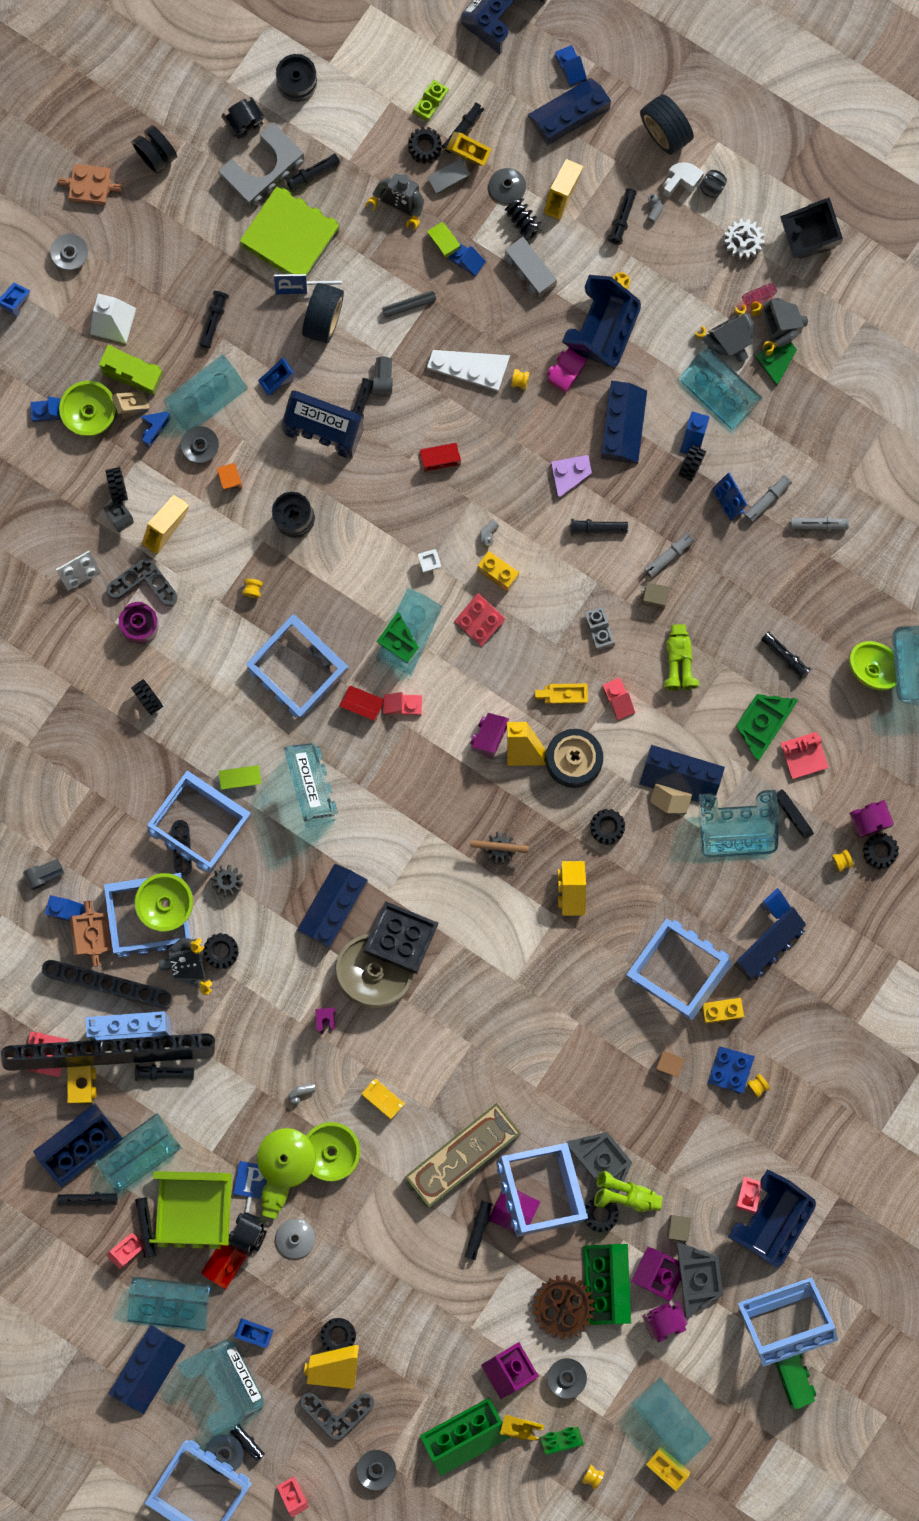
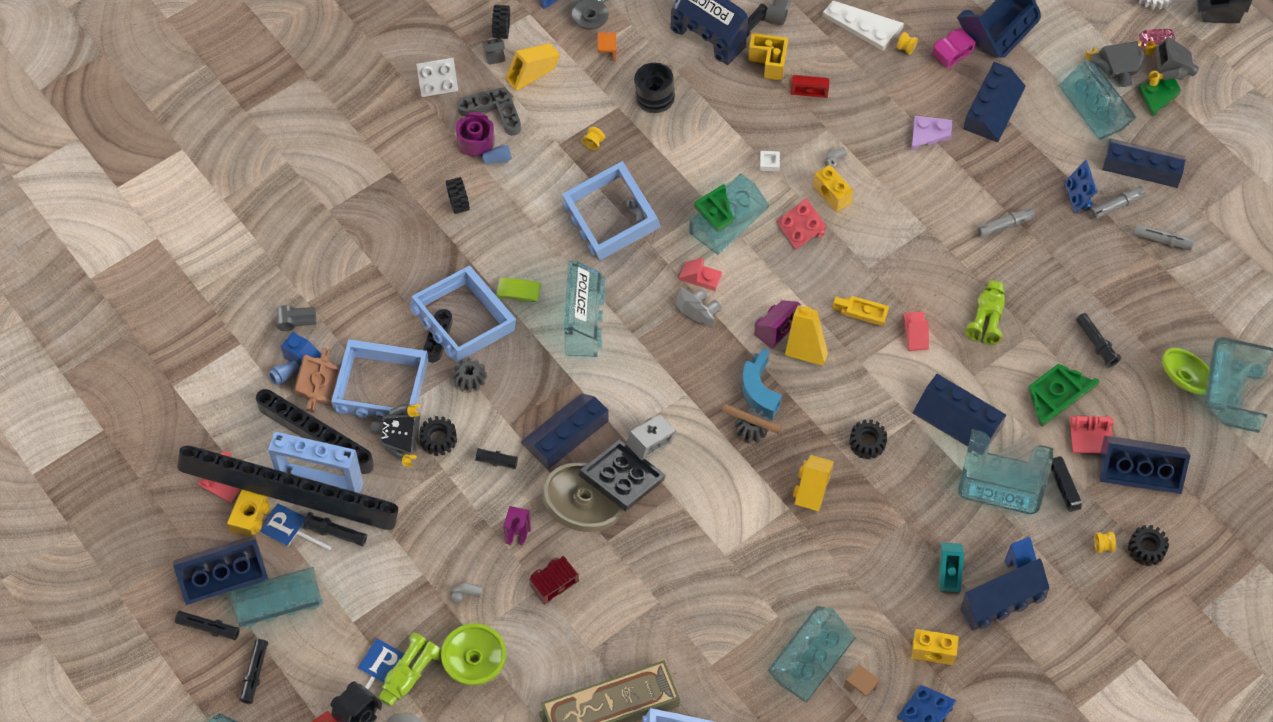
camera: 20 degrees right, 20 degrees down
(54, 935) = (281, 373): none -> medium blue cone
(116, 1082) = (284, 525): none -> blue piece
(125, 1251) = (222, 687): coral slope -> none
(159, 889) = (398, 356): lime dish -> none
(167, 635) = (498, 155): none -> medium blue cone
(193, 1209) = (309, 662): lime panel -> none
(281, 955) = (496, 458): none -> black pin
(300, 1157) = (429, 654): lime dish -> none
(362, 702) = (661, 262): red panel -> none
(374, 1056) = (553, 579): none -> dark red brick
(383, 1099) = (546, 624): yellow hinge -> none
(393, 434) = (771, 51): none -> yellow brick
(403, 742) = (692, 306): none -> light grey connector
(409, 900) = (650, 437): none -> light grey brick
(497, 817) = (753, 389): none -> dark azure arch
(579, 744) = (854, 366): wheel -> none
(588, 527) = (934, 177): black pin -> none
(599, 628) = (916, 265): light grey slope -> none
(619, 1050) = (812, 653): none -> clear light blue slope
(654, 595) = (981, 251): dark tan brick -> none
(670, 799) = (941, 433): tan slope -> none
(692, 463) = (1051, 149): black tyre -> none
(695, 431) = (1061, 129): blue slope -> none
(708, 987) = (920, 616): light blue window -> none
(715, 927) = (951, 566): none -> teal slope
(781, 443) = (1144, 163): none -> dark blue slope
(857, 773) = (1143, 464): none -> dark blue slope
(871, 819) = (1147, 508): magenta brick -> none

